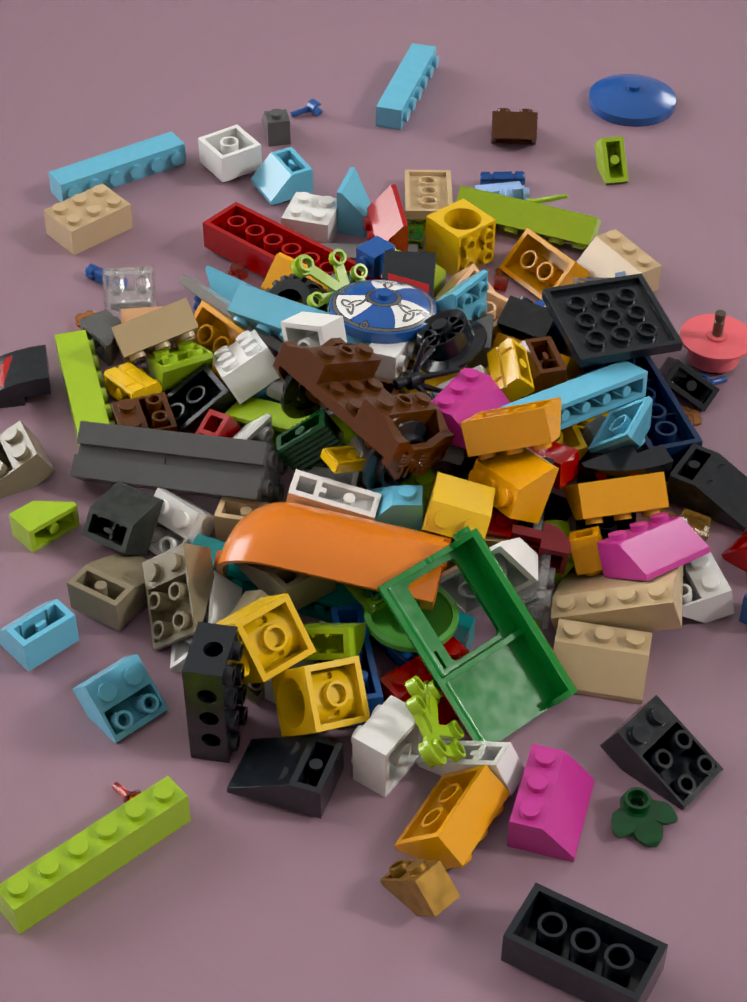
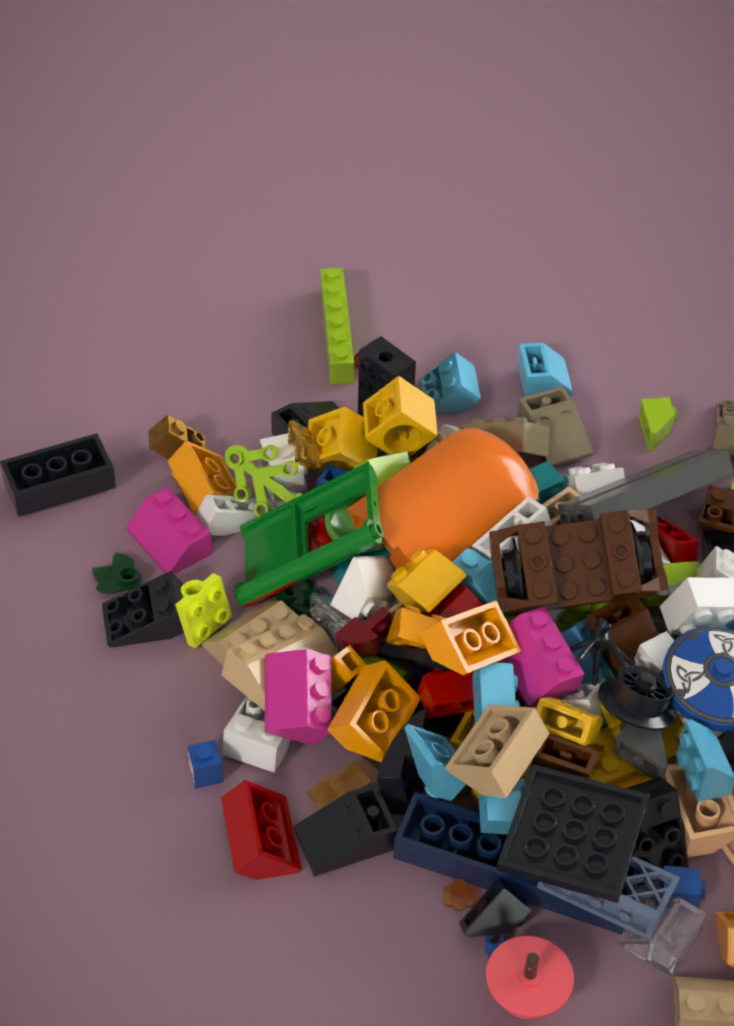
camera: 125 degrees right, 5 degrees up
(123, 519) = (609, 445): pearl dark grey slope -> none
(360, 708) = (305, 445): none -> clear yellow slope
(595, 370) = (498, 749): none -> tan slope
(621, 692) = (203, 609): none -> neon yellow plate

